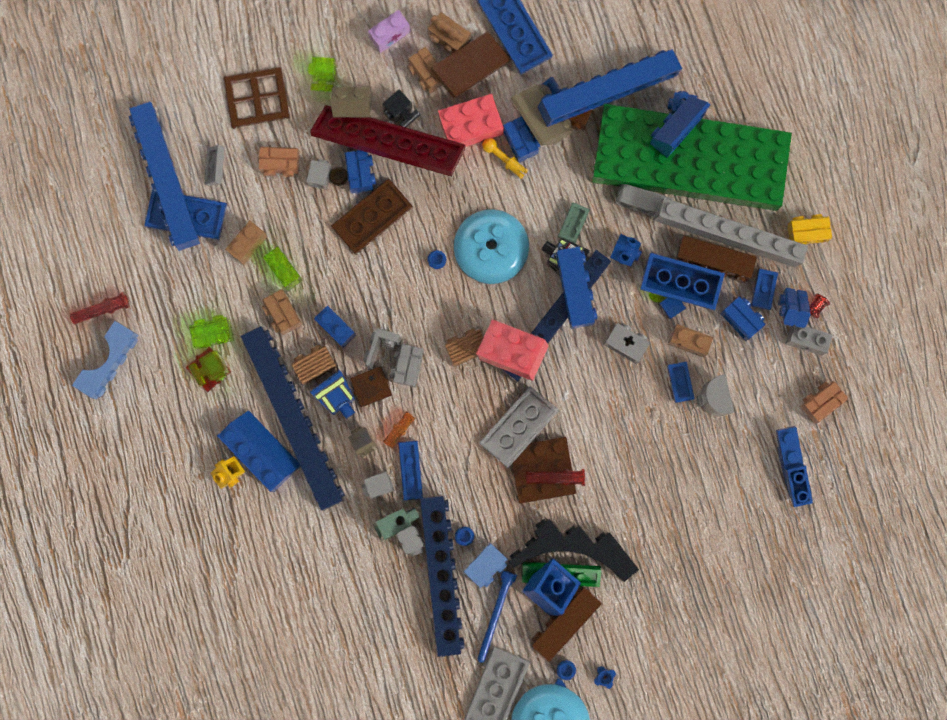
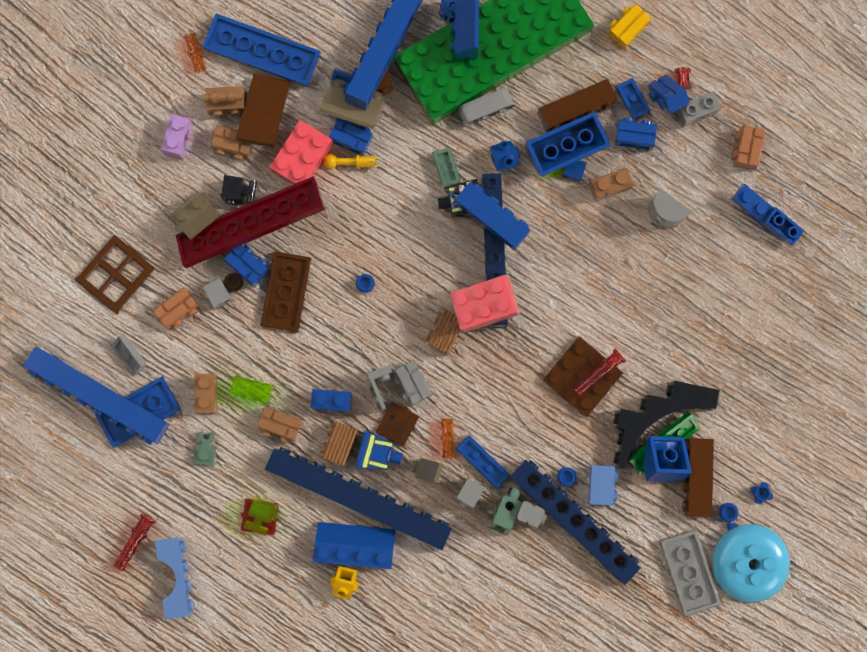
camera: 40 degrees left, 0 degrees up
(209, 287) = (205, 452): none -> sand green plate
(211, 332) = (237, 486): clear neon green brick -> none
(322, 70) = (150, 210): clear neon green brick -> none
(486, 264) = (403, 256): medium azure brick -> none
(507, 580) = (627, 482): blue piece -> none
(519, 426) = (537, 358): light grey tile -> none
(632, 352) = (574, 230): light grey brick -> none
(680, 382) = (630, 222): blue plate -> none
(730, 233) = (572, 77): light grey brick -> none

